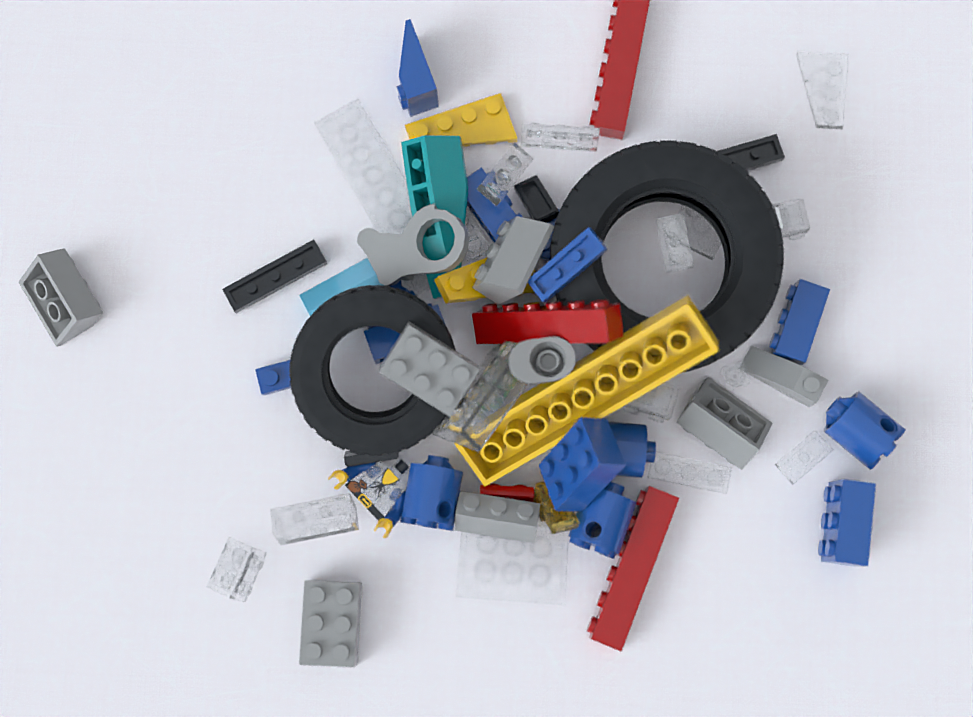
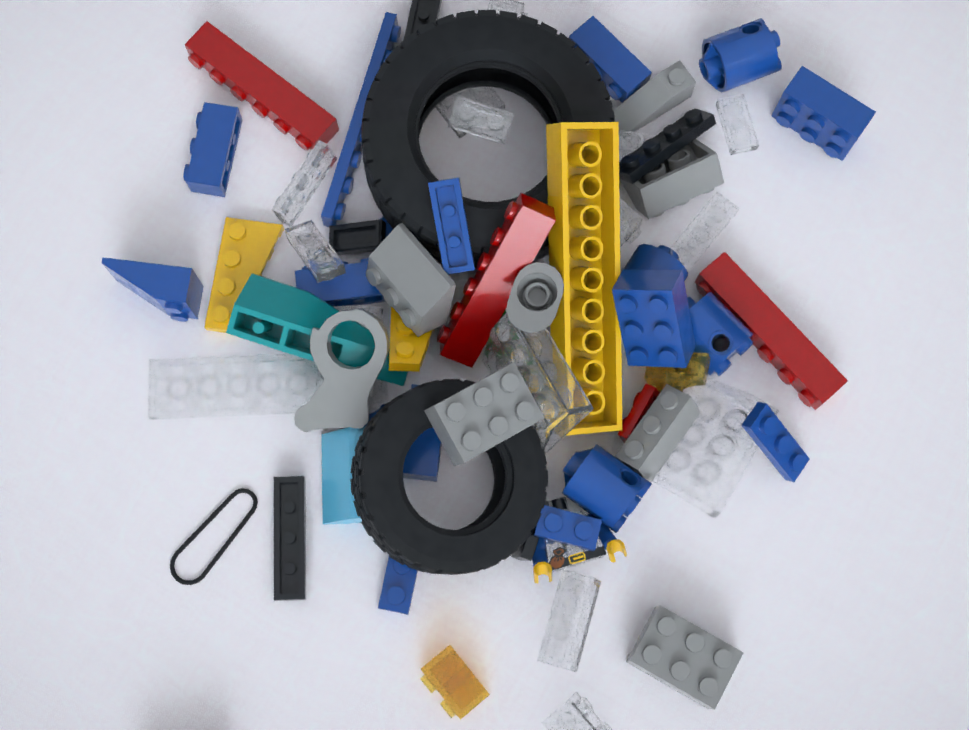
camera: 65 degrees left, 5 degrees down
(226, 455) = (454, 682): none -> clear yellow brick
(249, 232) = (225, 546): none -> black piece
(383, 482) = (568, 528): none -> blue plate
(537, 614) = (775, 441): none -> blue plate
(550, 53) = (213, 149): none -> blue brick
(578, 164) = (350, 155): none -> blue plate
(747, 404) = (664, 145): none -> black plate

